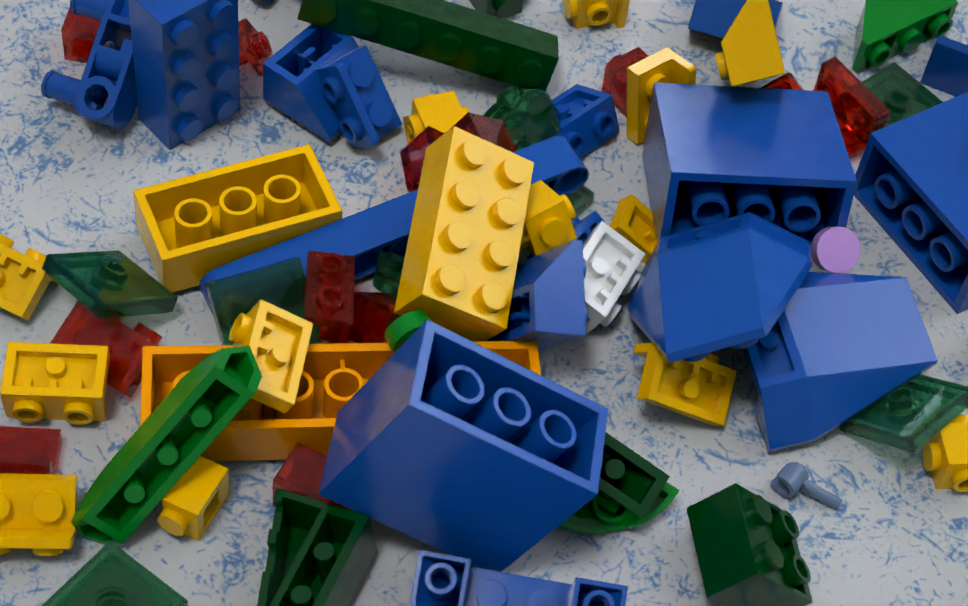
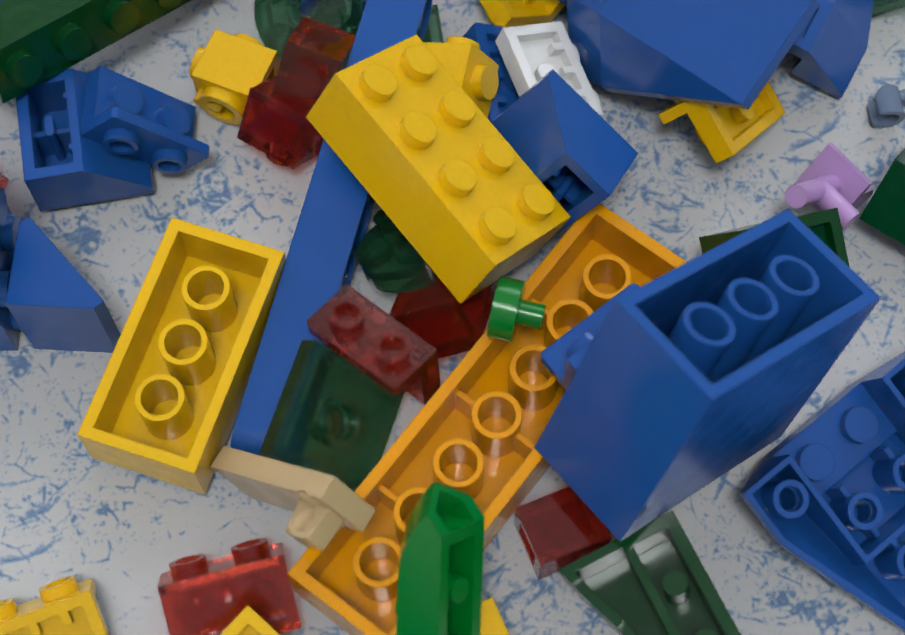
camera: 40 degrees left, 15 degrees up
(109, 283) = (161, 544): clear green plate -> none
(196, 321) = (318, 499): none -> tan hinge
(208, 123) = (54, 300): none -> blue slope
(280, 349) = (406, 451): yellow bracket -> none
(688, 480) = (830, 184): none -> lavender arm

